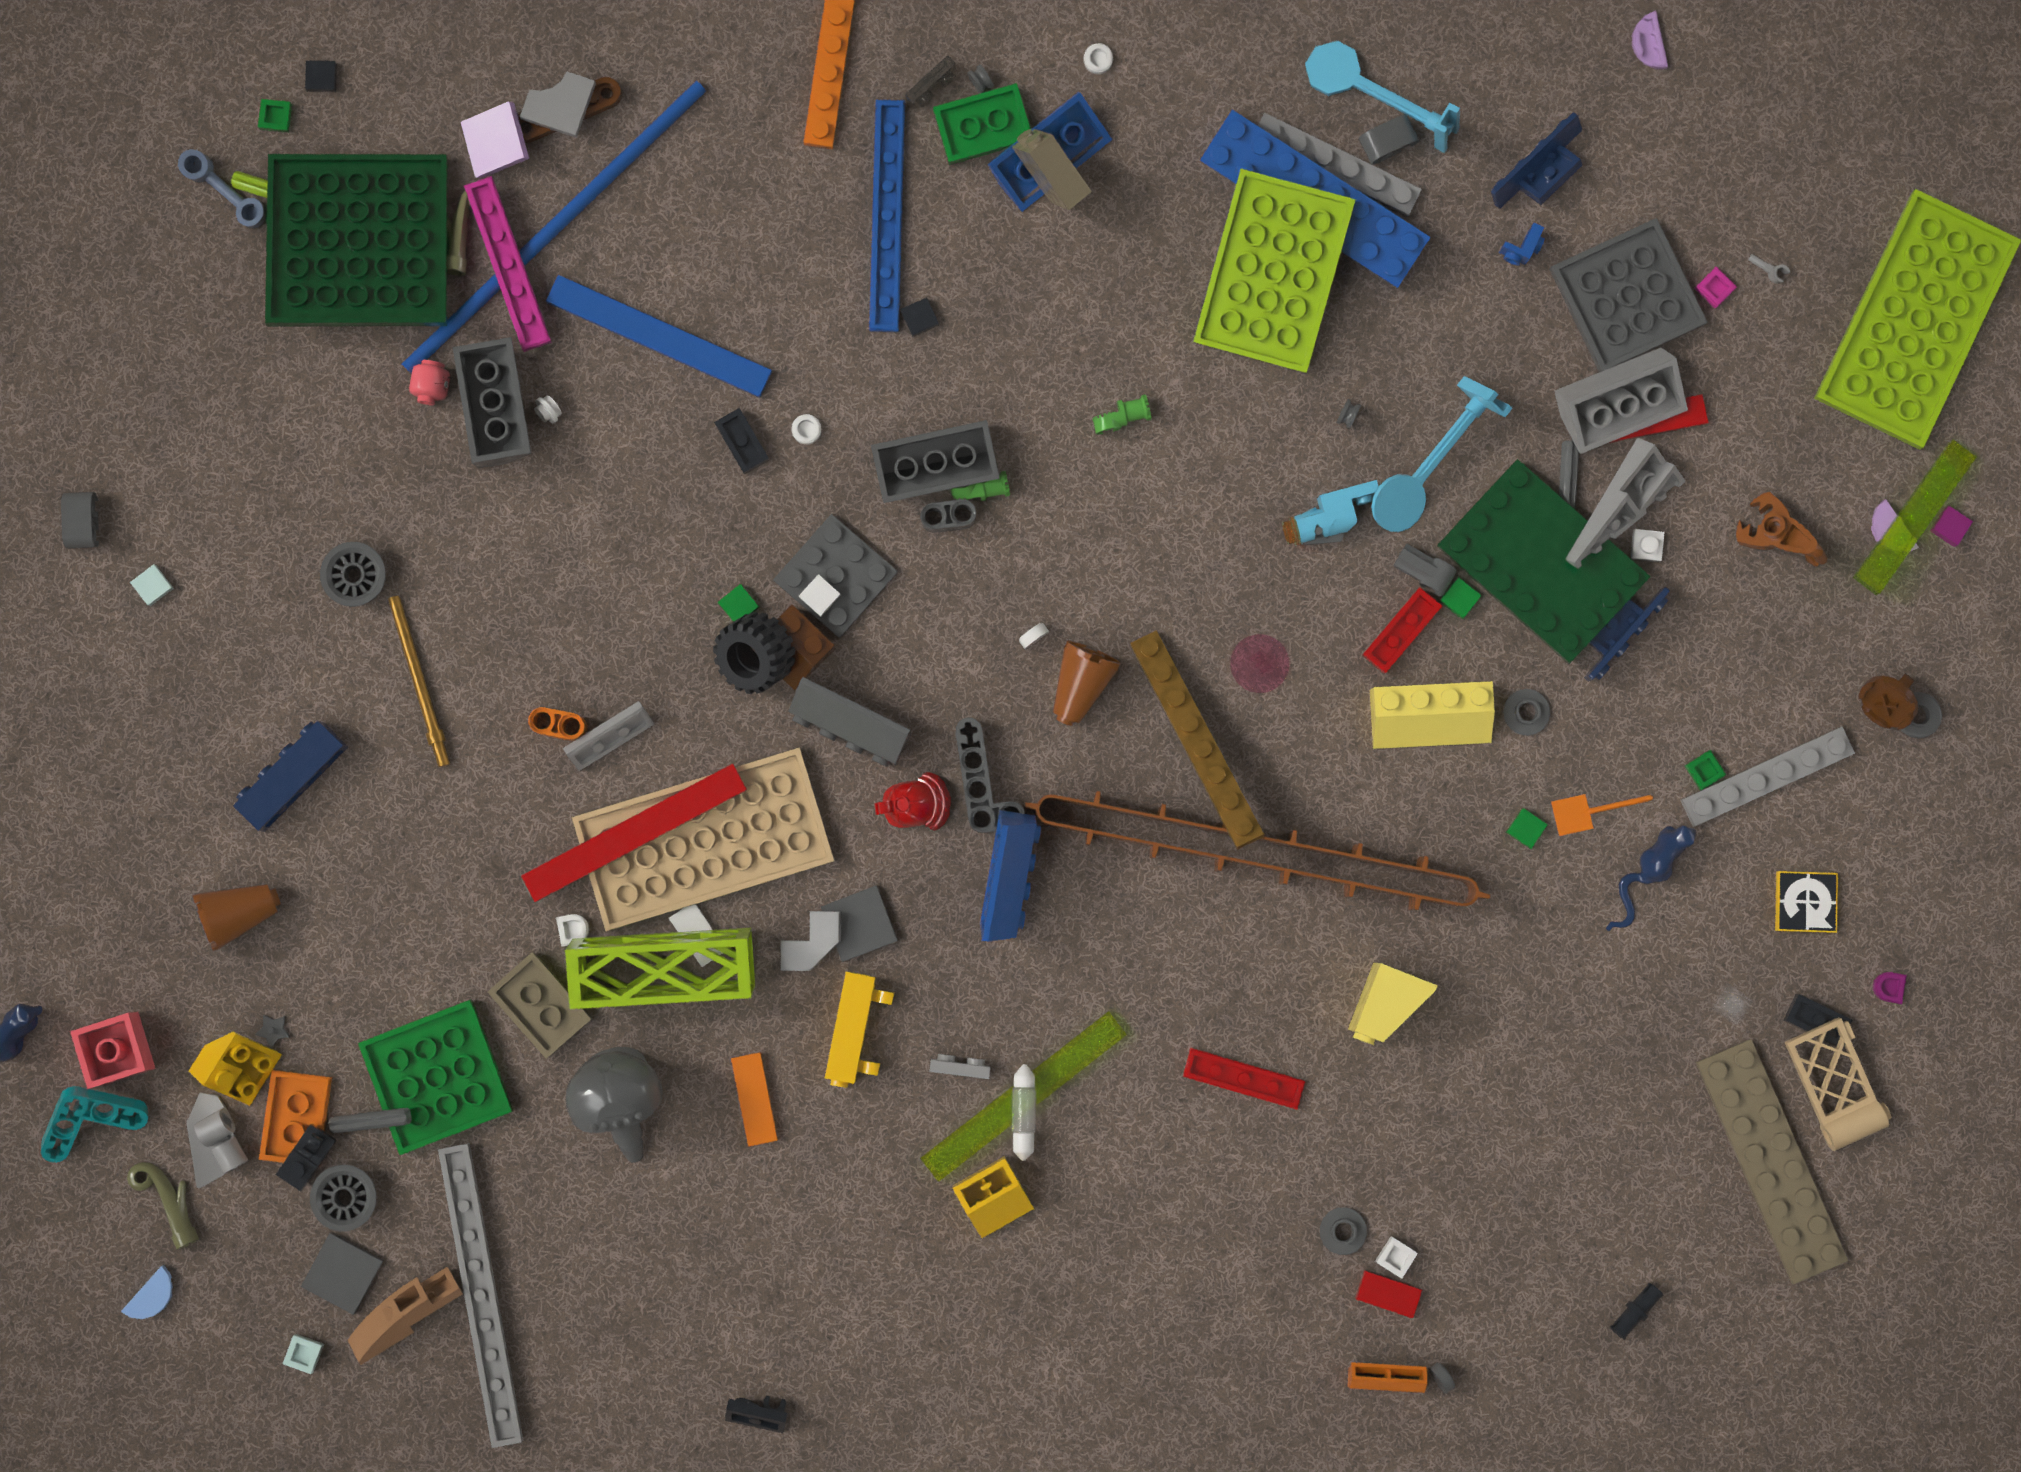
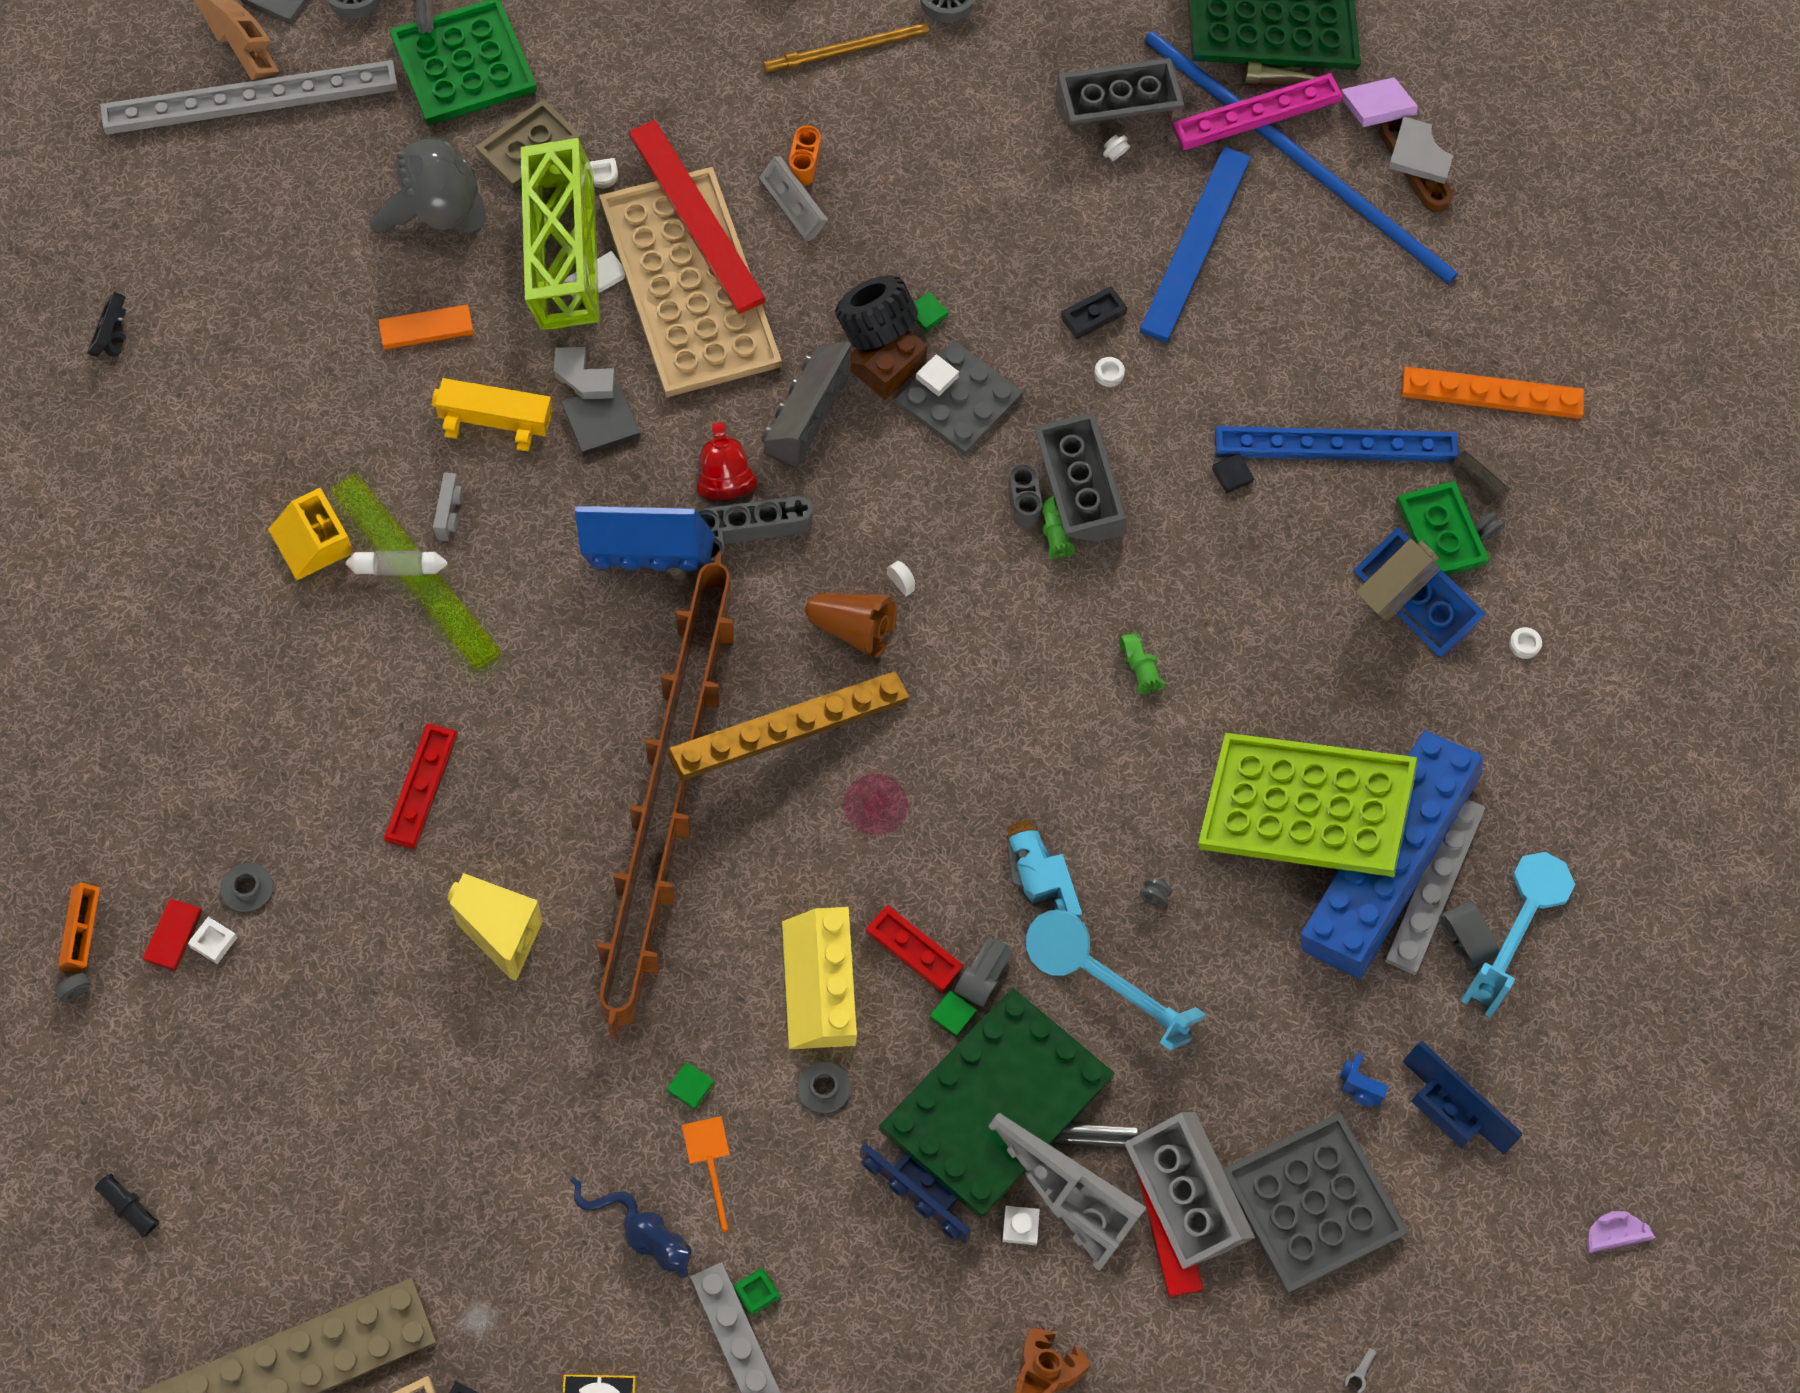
camera: 90 degrees right, 20 degrees down
(429, 382) = (1136, 48): coral head -> none
(1715, 287) = (1332, 1308): dark pink tile -> none

